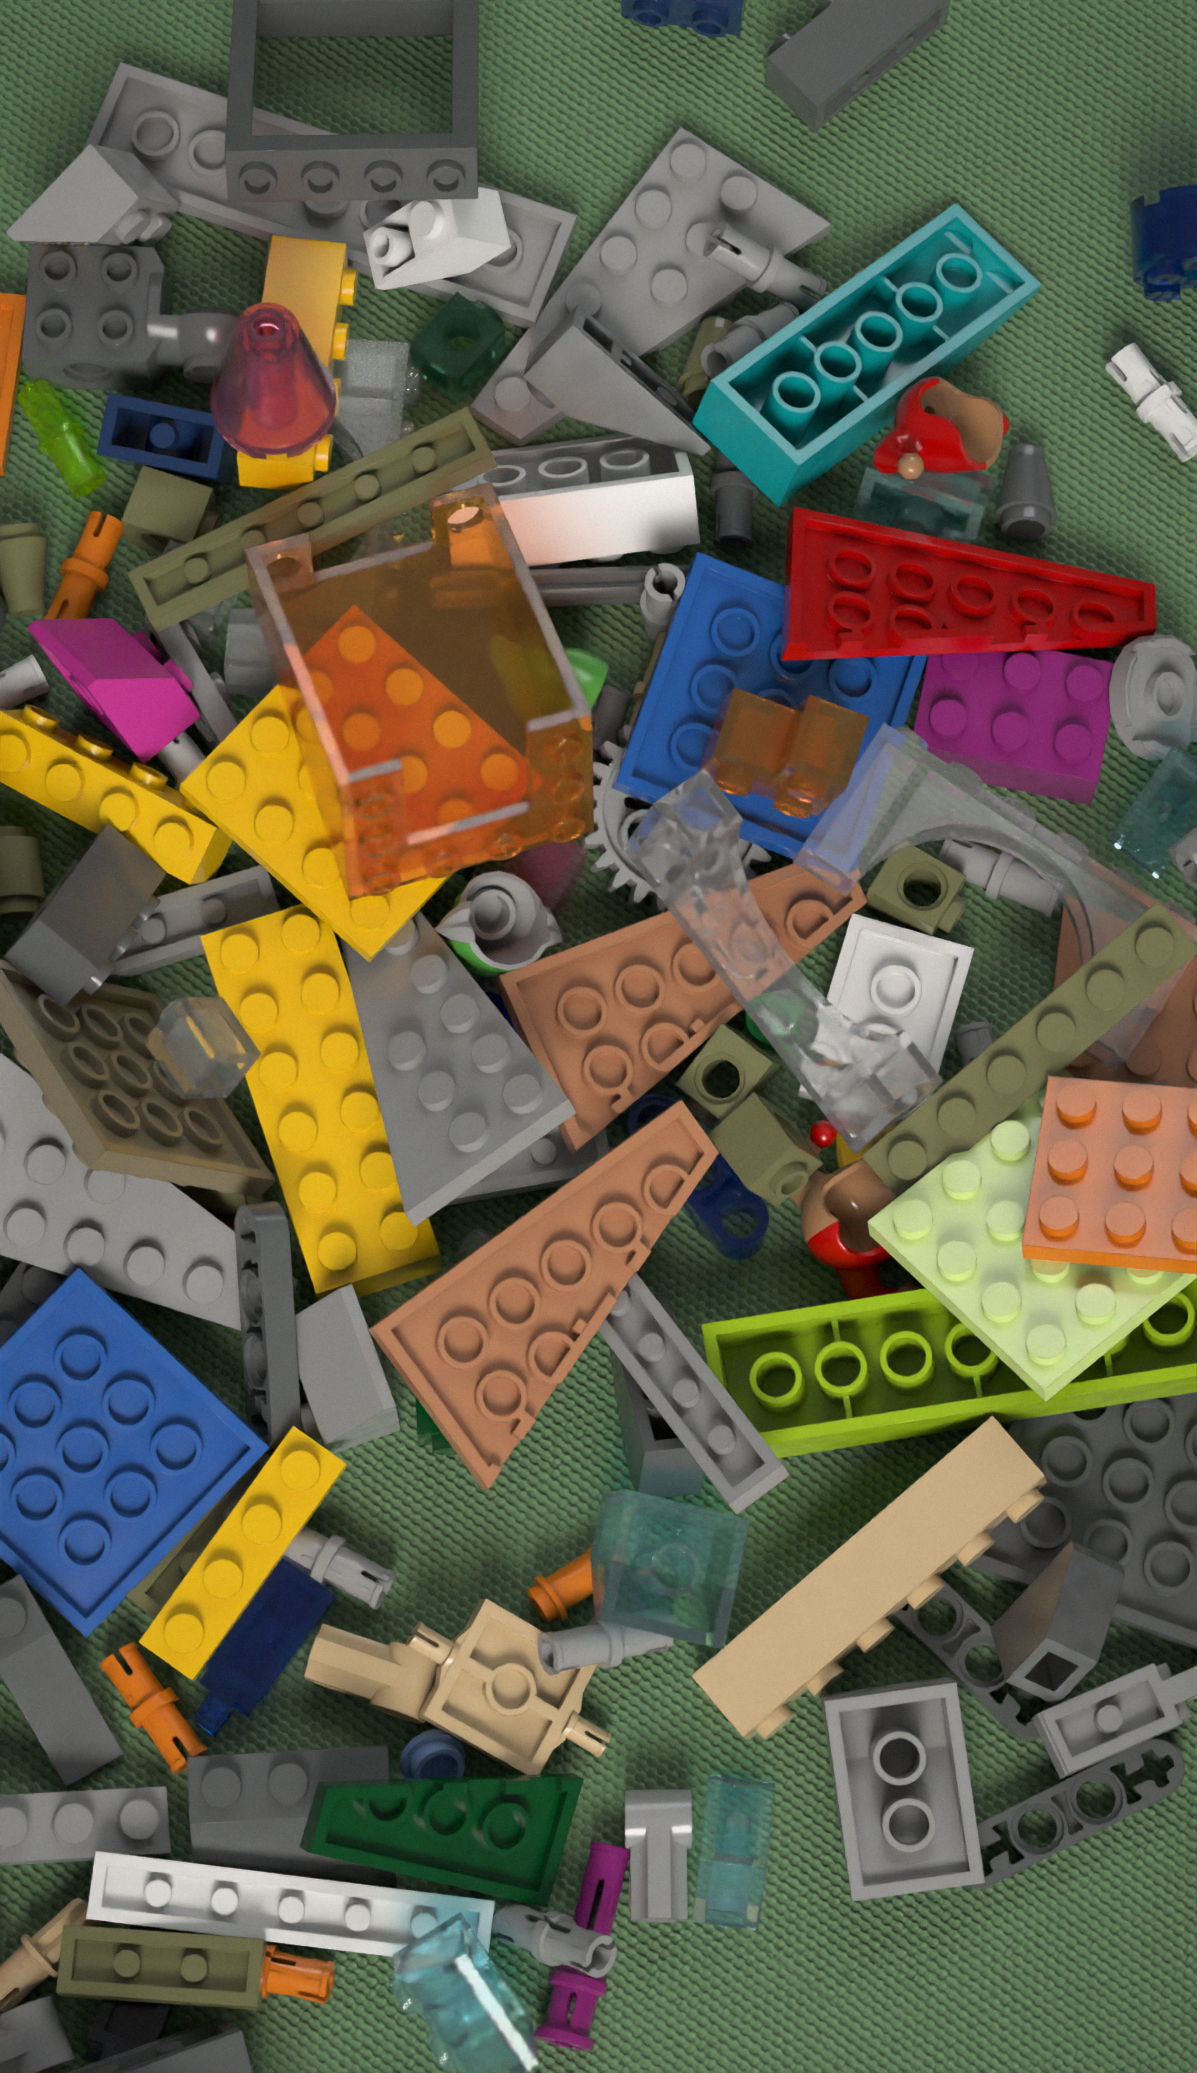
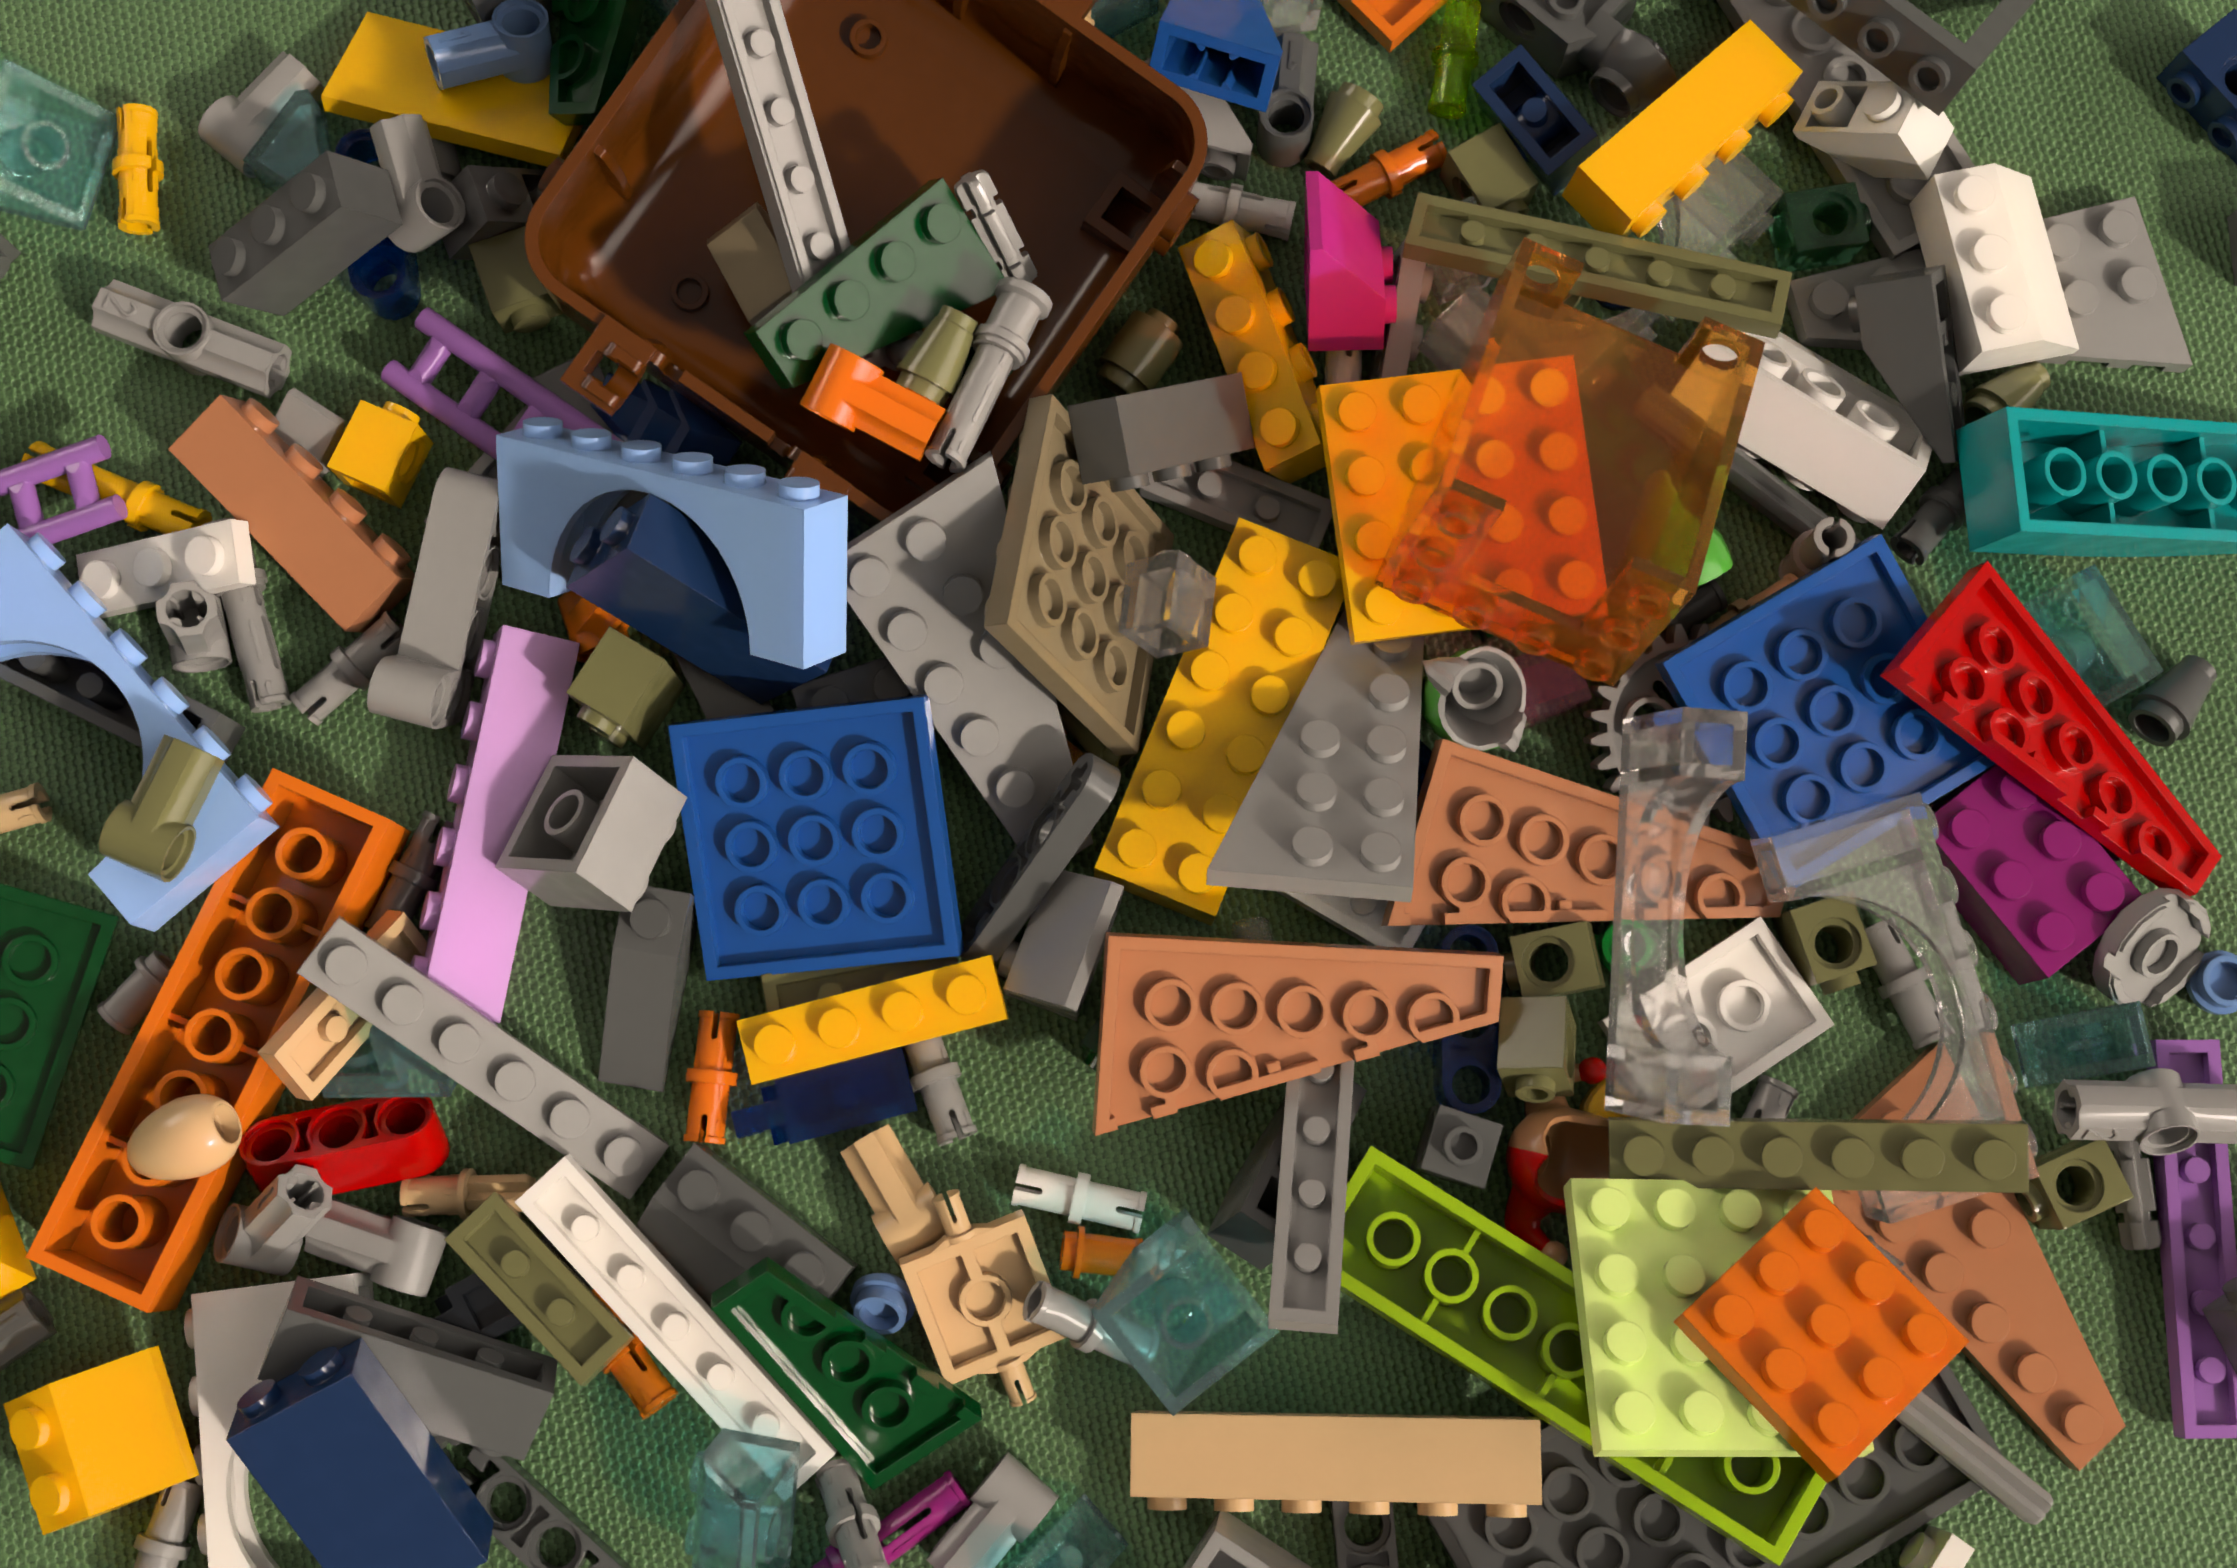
camera: 35 degrees right, 5 degrees up
(272, 386) = (1655, 126): clear pink cone -> none
(517, 1558) = (1079, 1198): none -> white pin
(620, 271) = (1997, 267): none -> white slope
(745, 336) = (2053, 395): light grey pin -> none
(764, 267) = (2113, 354): light grey pin -> none
(769, 1275) = (1456, 1147): none -> dark grey brick
(784, 753) = (1819, 753): clear orange brick -> none
(941, 432) = (2153, 596): piece -> none

